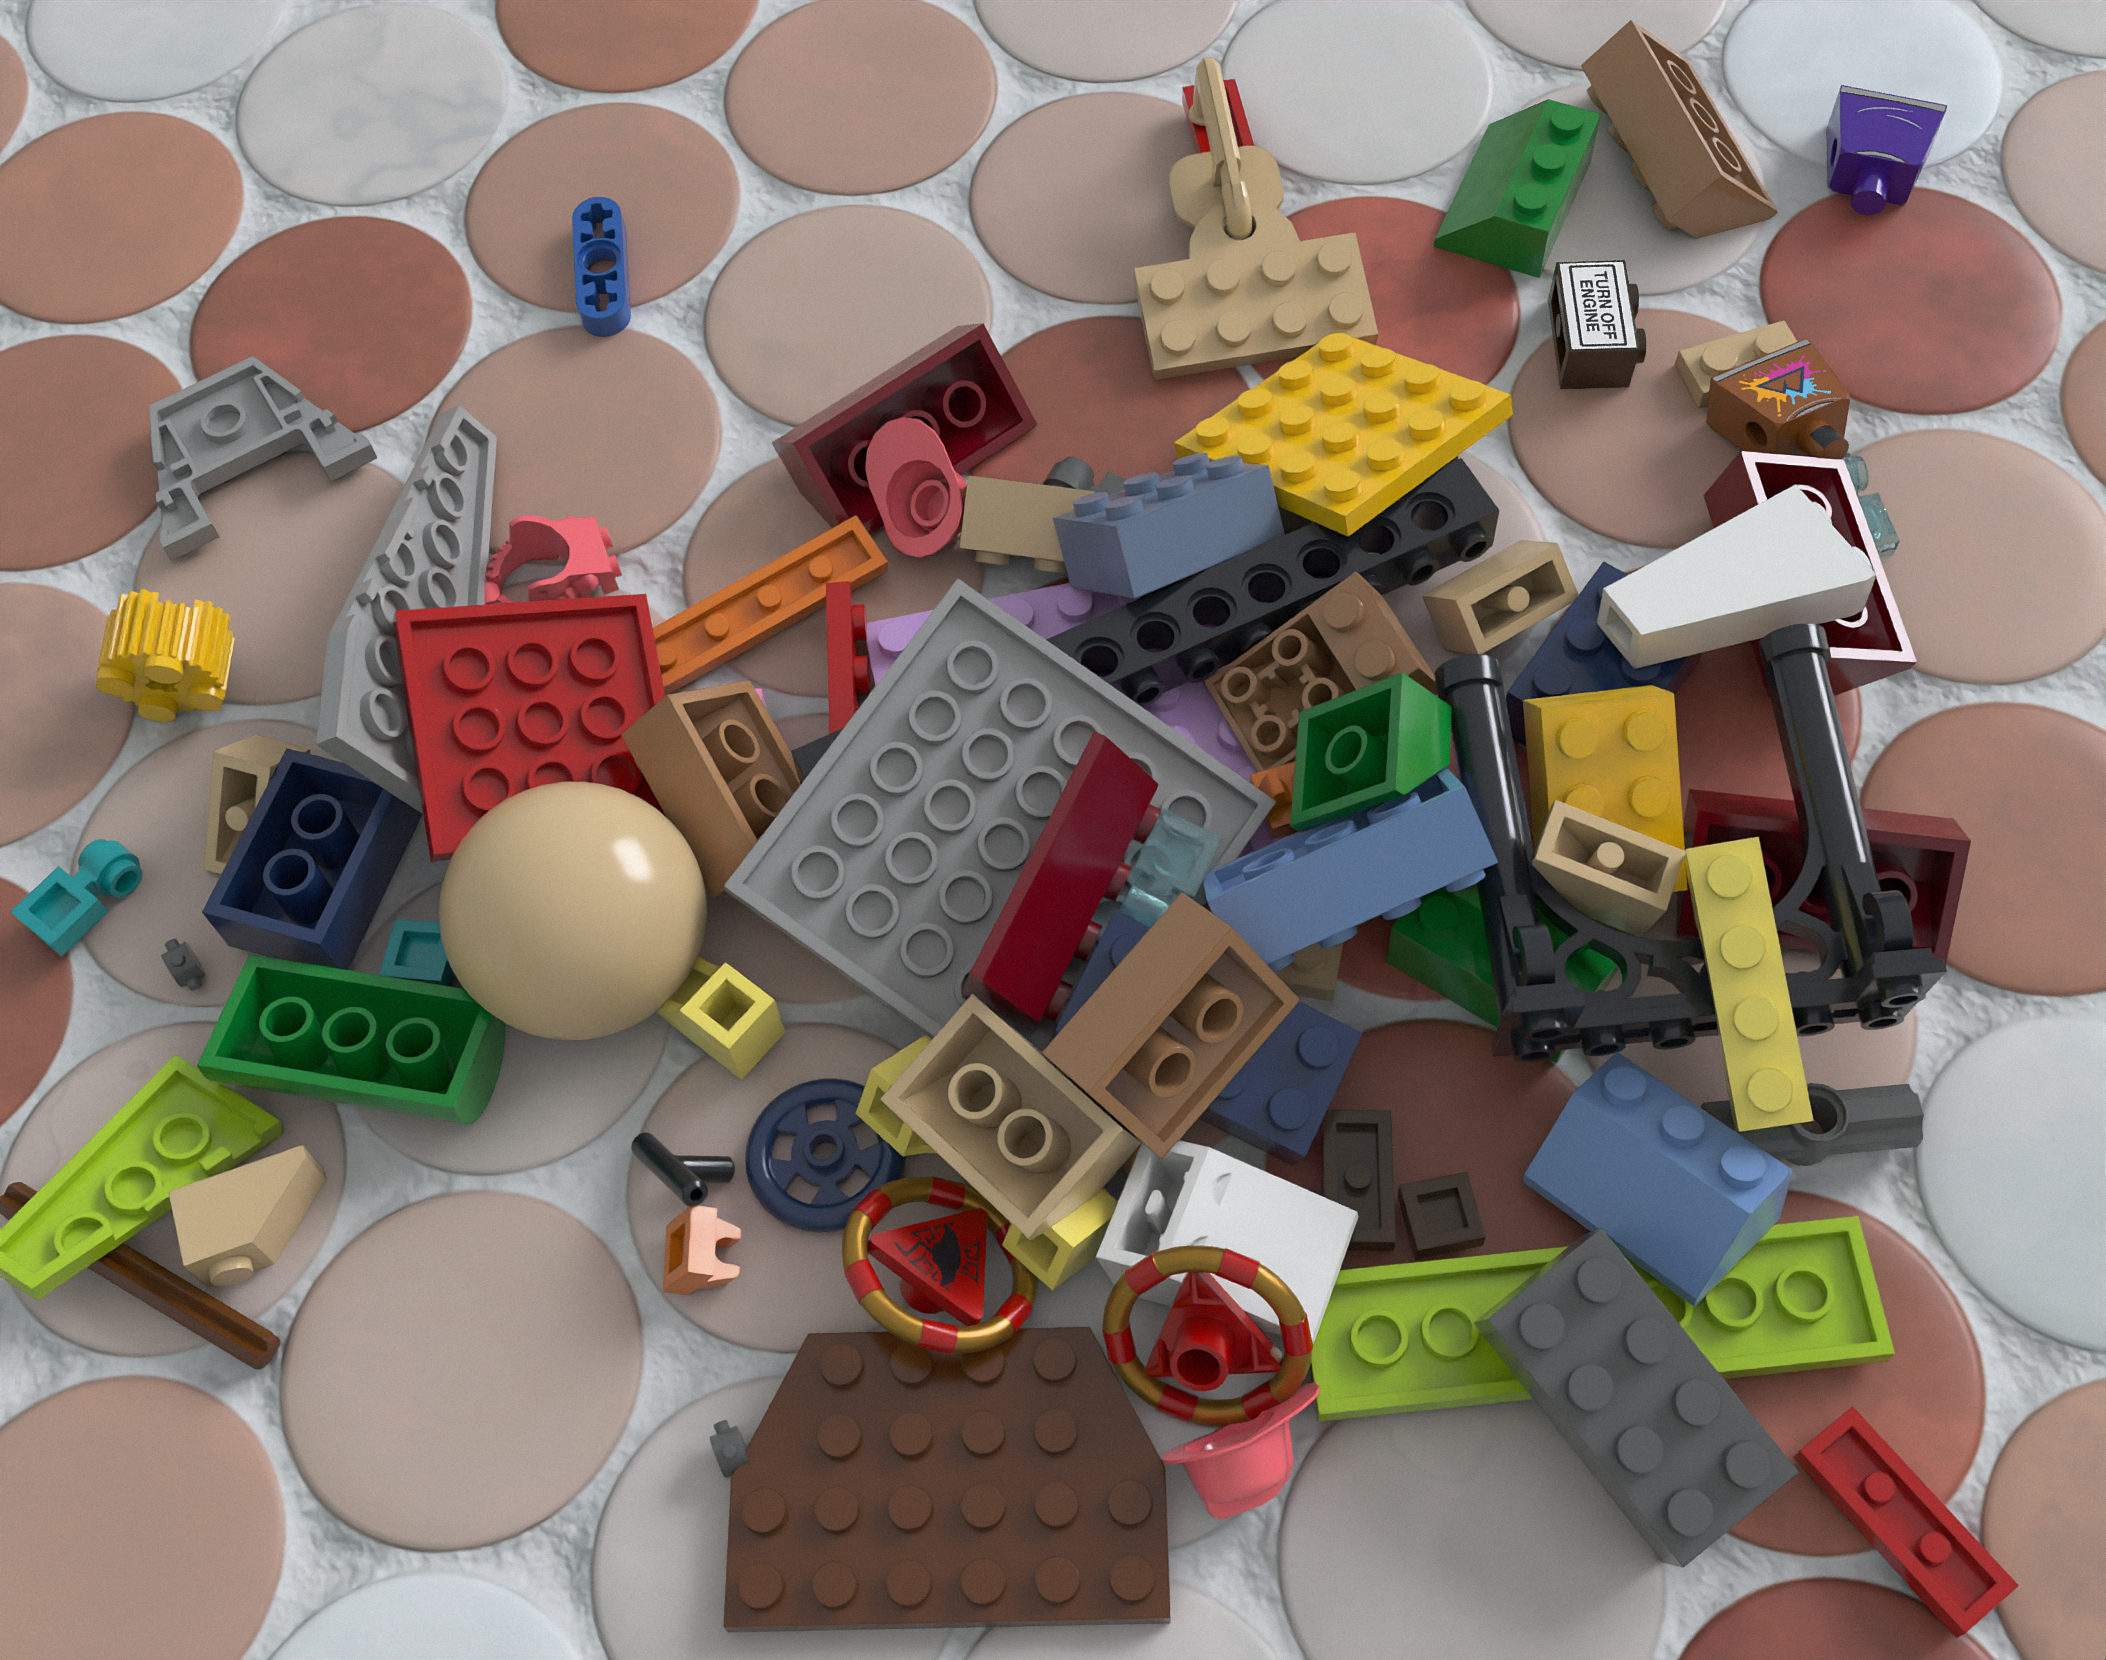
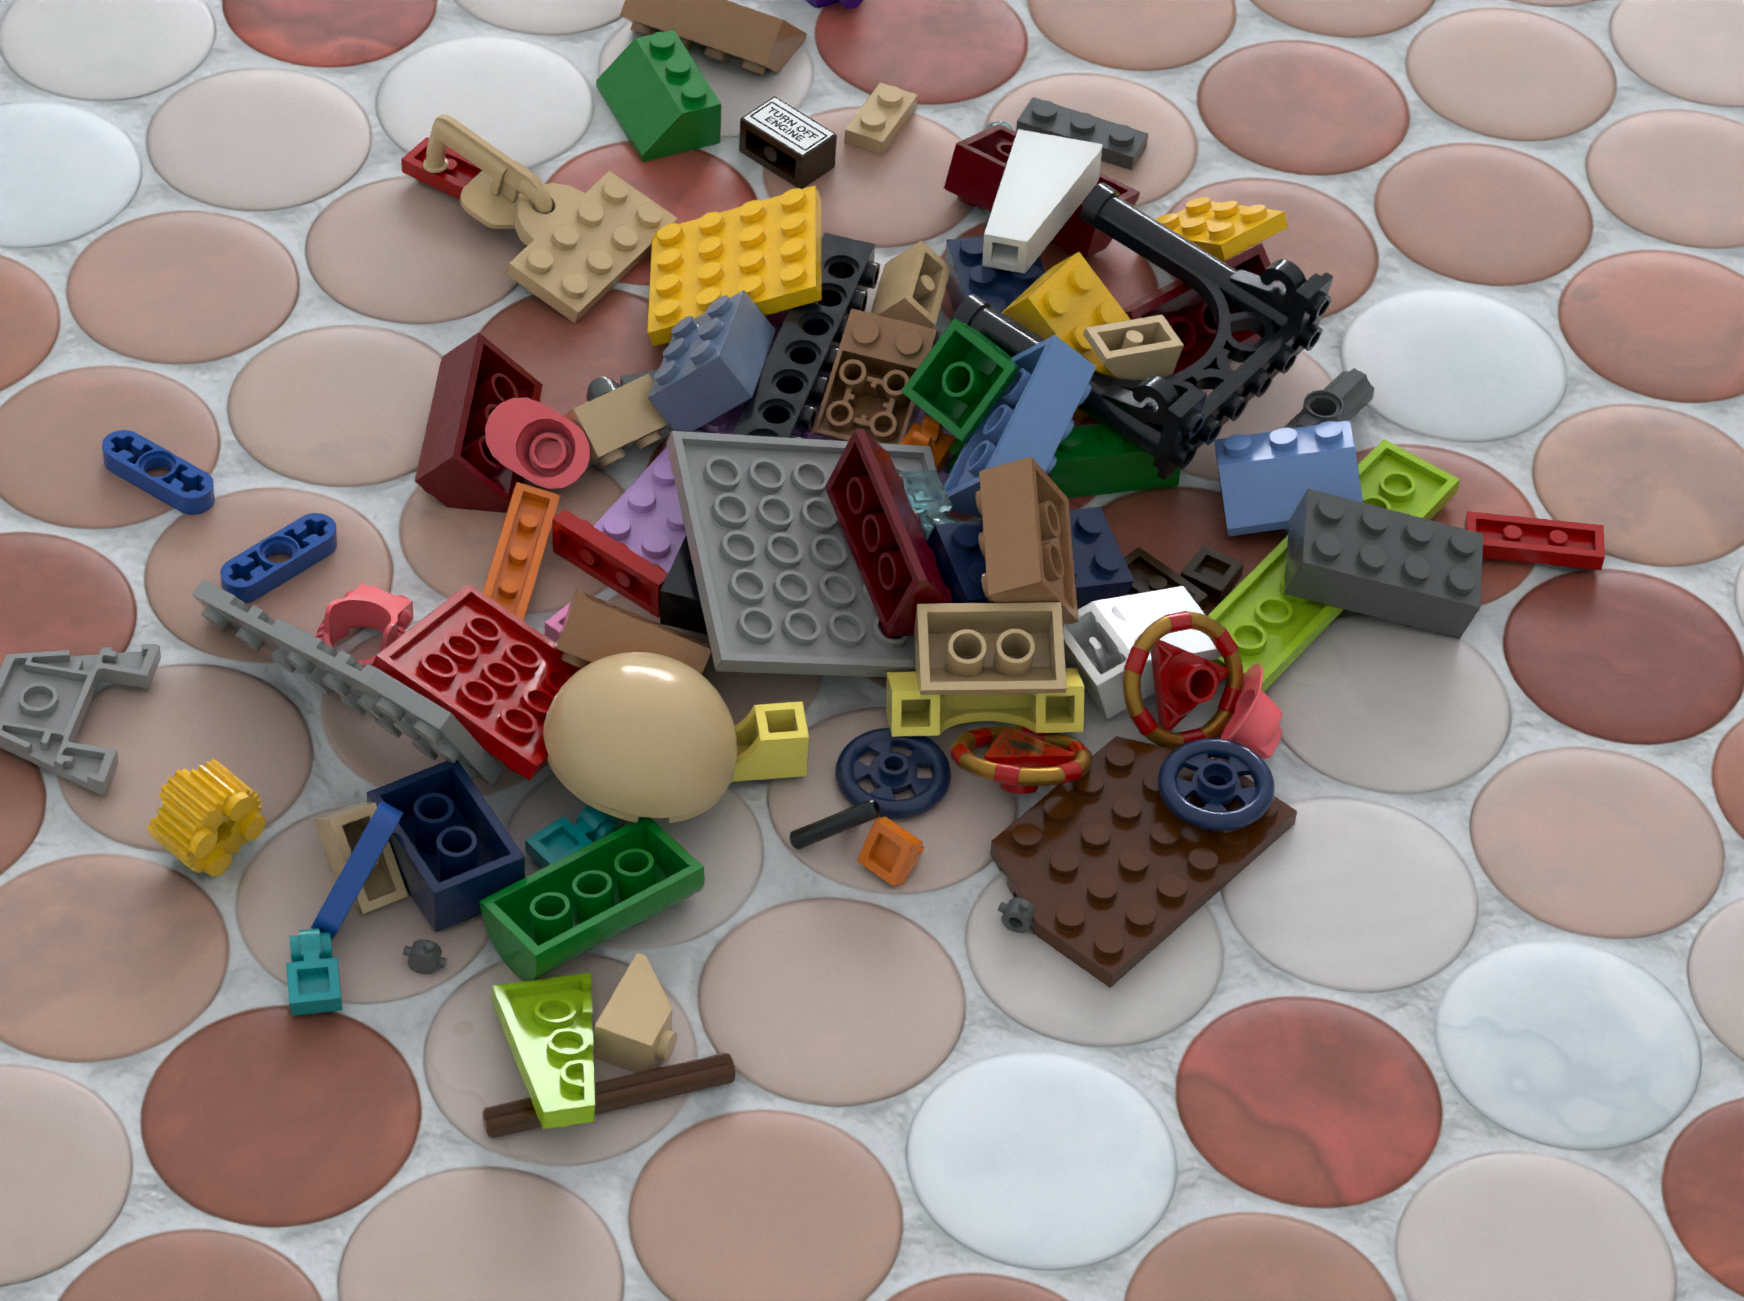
camera: 55 degrees left, 15 degrees down
(192, 823) = (357, 869): none -> blue beam
(570, 416) = (312, 532): none -> blue beam
(1041, 1541) = (1216, 784): none -> dark blue plate
(1748, 985) = (1215, 321): light yellow arch -> none
(1782, 404) = (934, 119): dark orange torso -> none
(1953, 776) = (1224, 227): none -> yellow plate
(1958, 538) = (1120, 143): none -> dark grey plate

